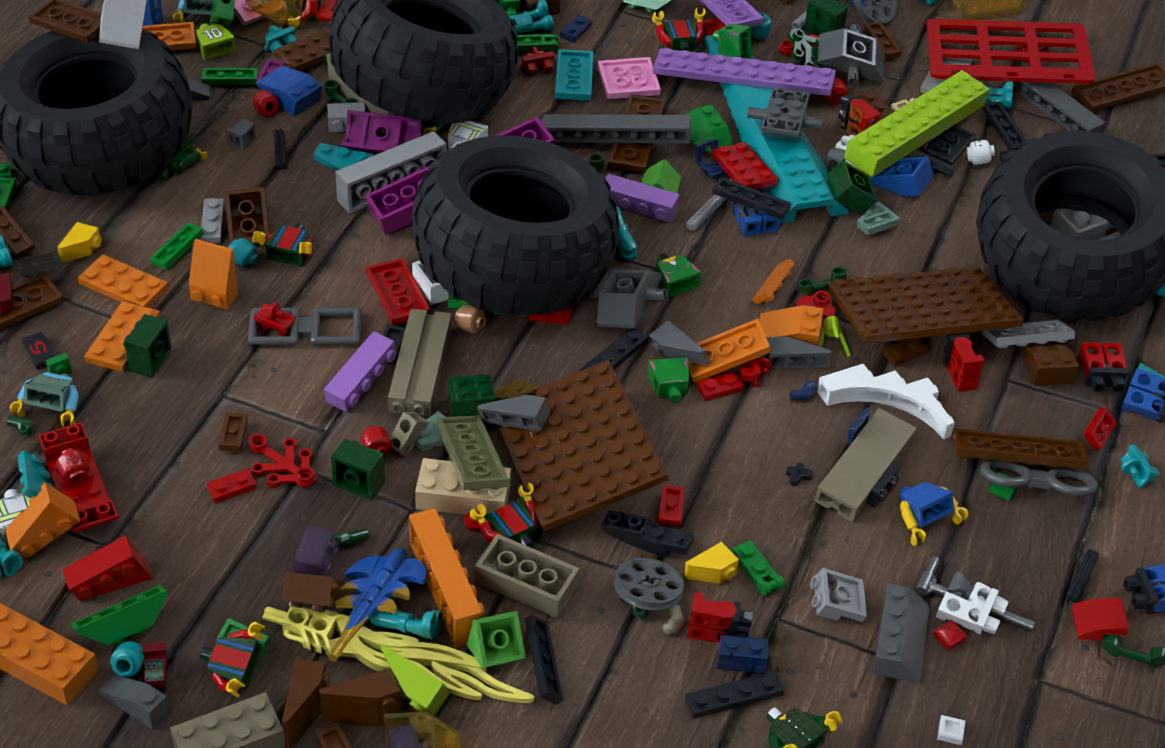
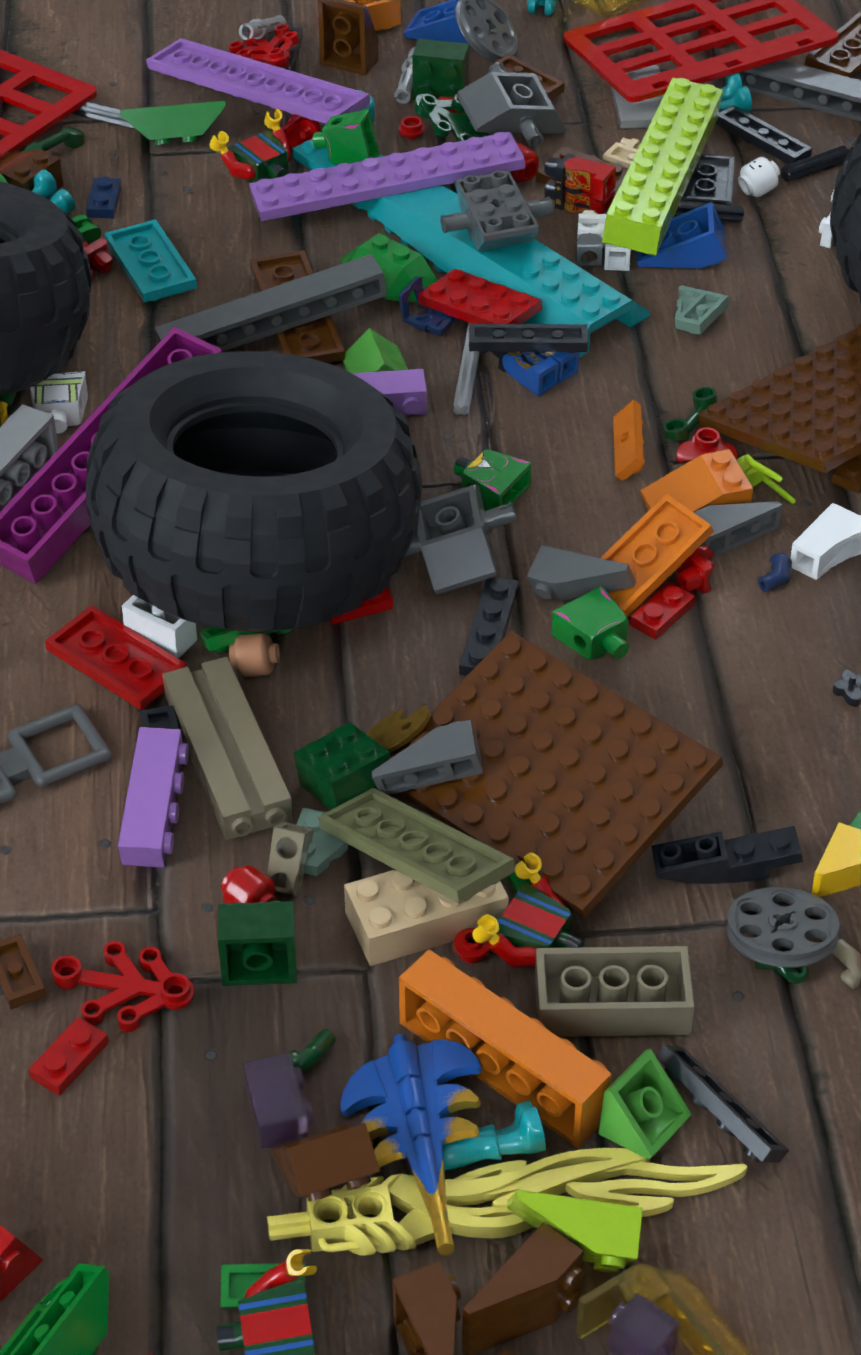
camera: 25 degrees left, 0 degrees up
(628, 77) = (229, 239): bright pink plate -> none
(671, 505) = (728, 804): red plate -> none
(852, 187) = (641, 277): dark green brick -> none

